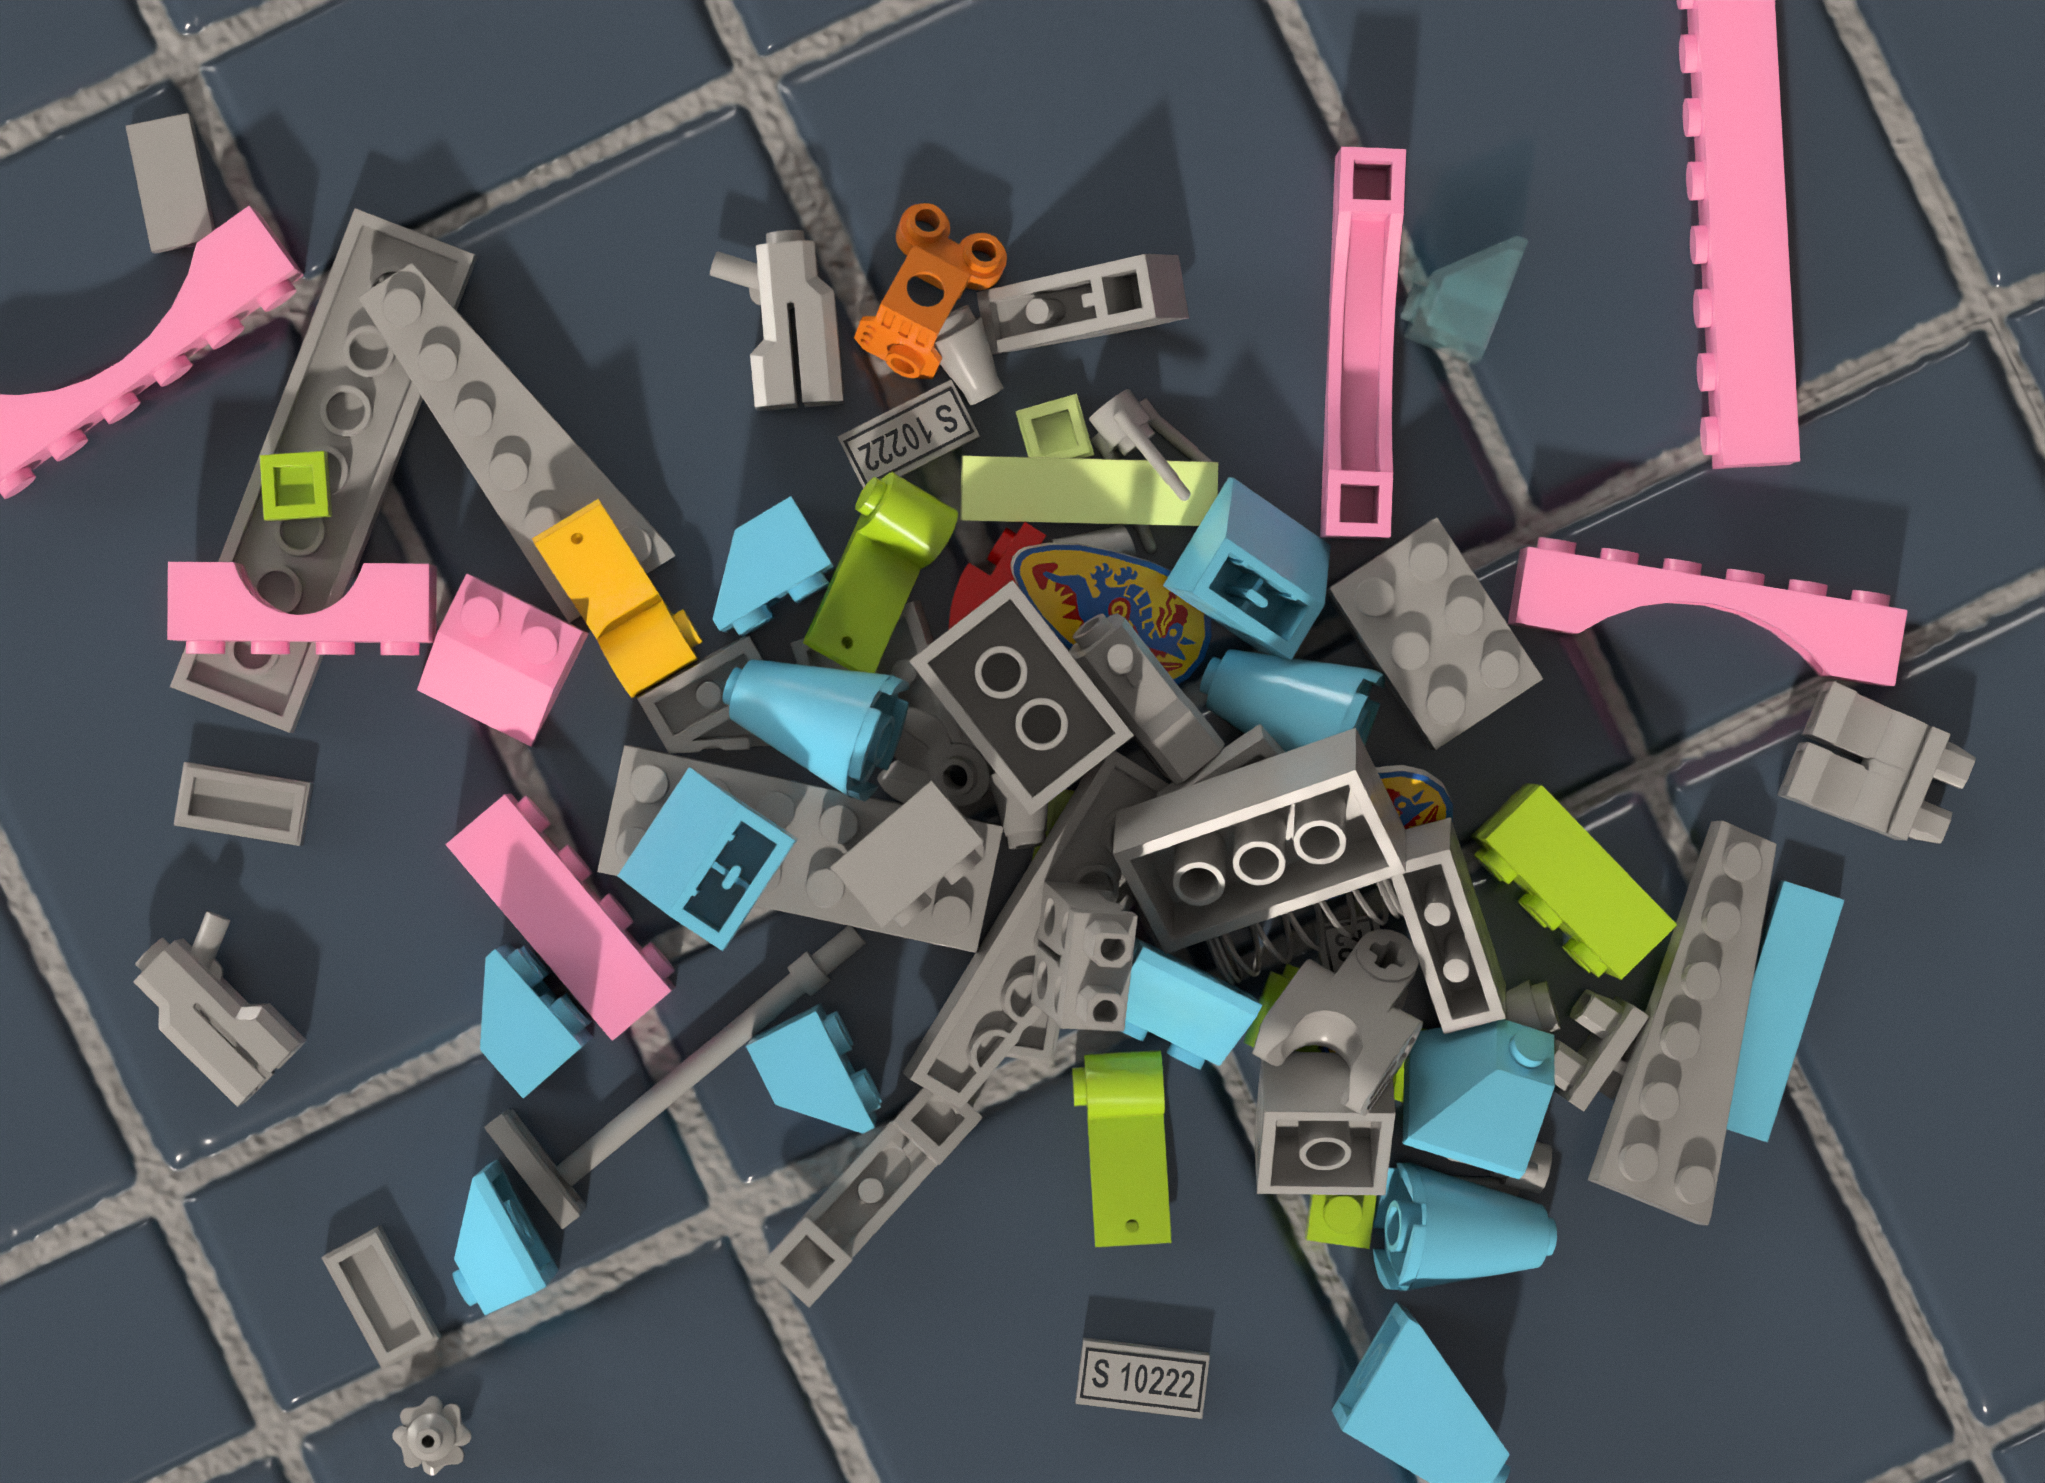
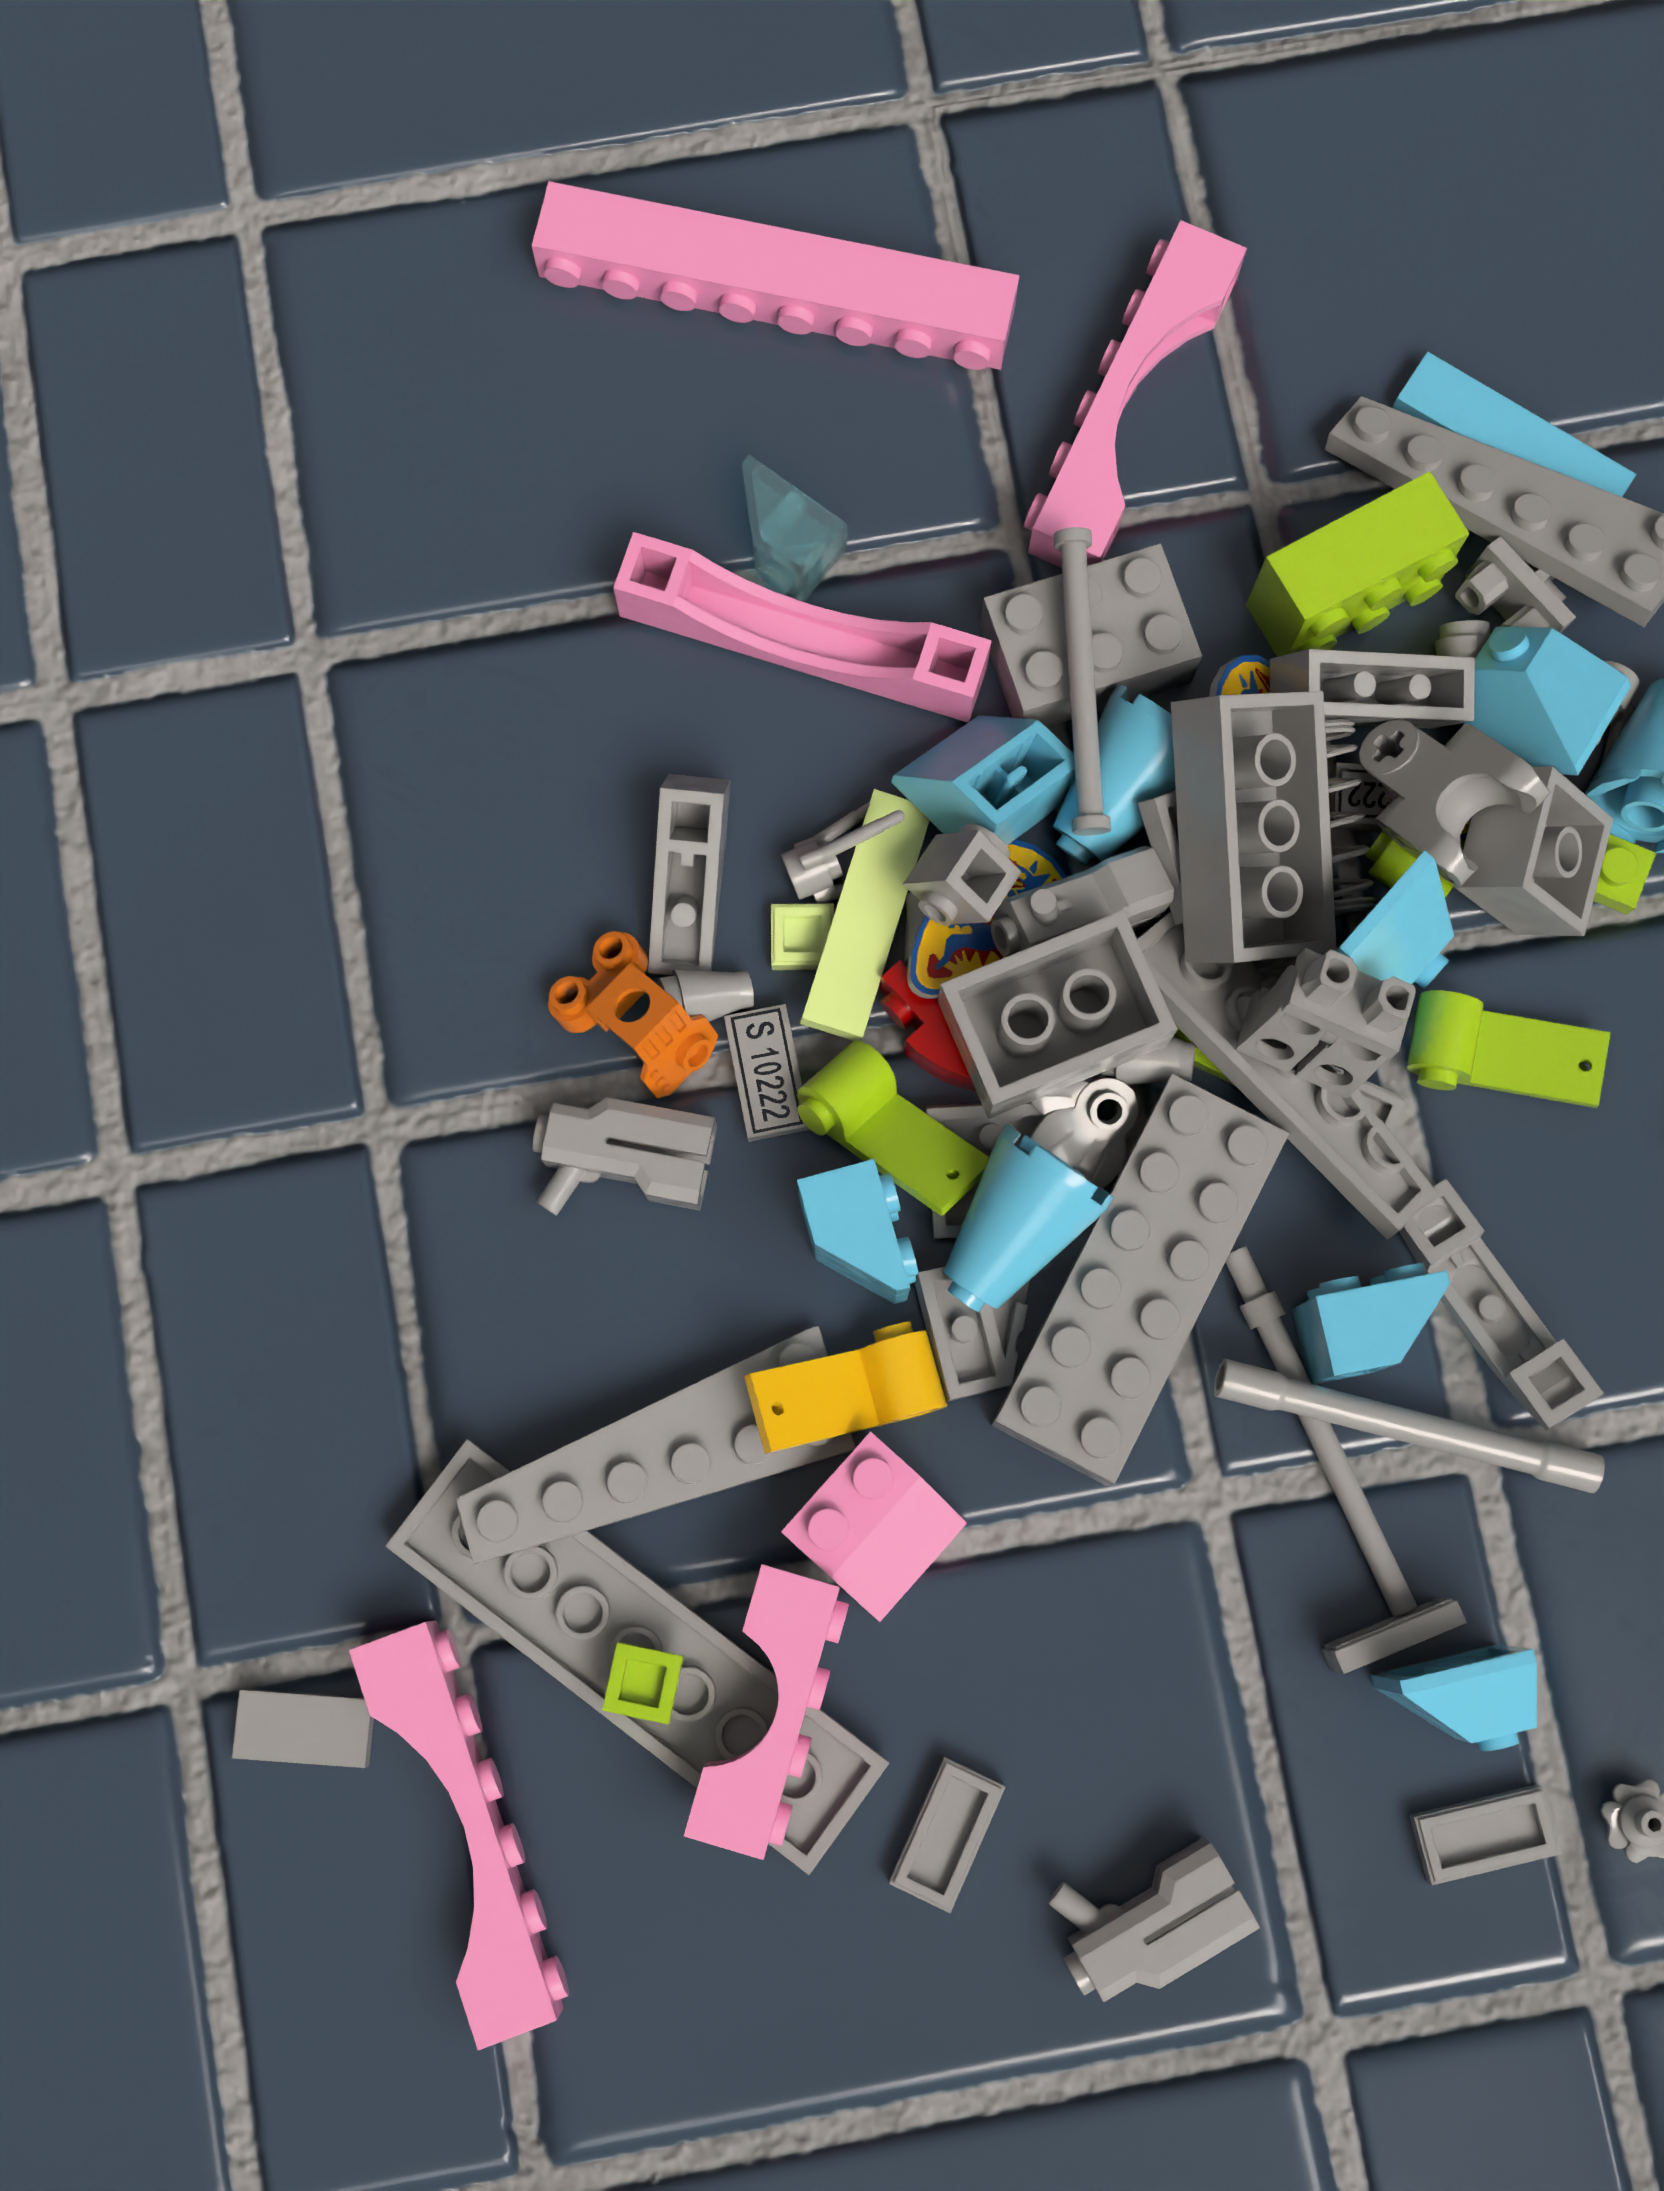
camera: 75 degrees left, 10 degrees down
(524, 1023) = (1256, 1599): medium azure slope -> none
(562, 915) = (1146, 1536): bright pink brick -> none
(707, 858) = (1137, 1361): medium azure slope -> none
(738, 1272) = (1542, 1460): none -> light grey piece
(909, 855) = (1186, 1154): light grey brick -> none
(1135, 573) = (963, 876): none -> light grey brick
(1369, 637) = (1073, 546): none -> light grey bar
(1895, 769) = (1311, 294): light grey hips -> none

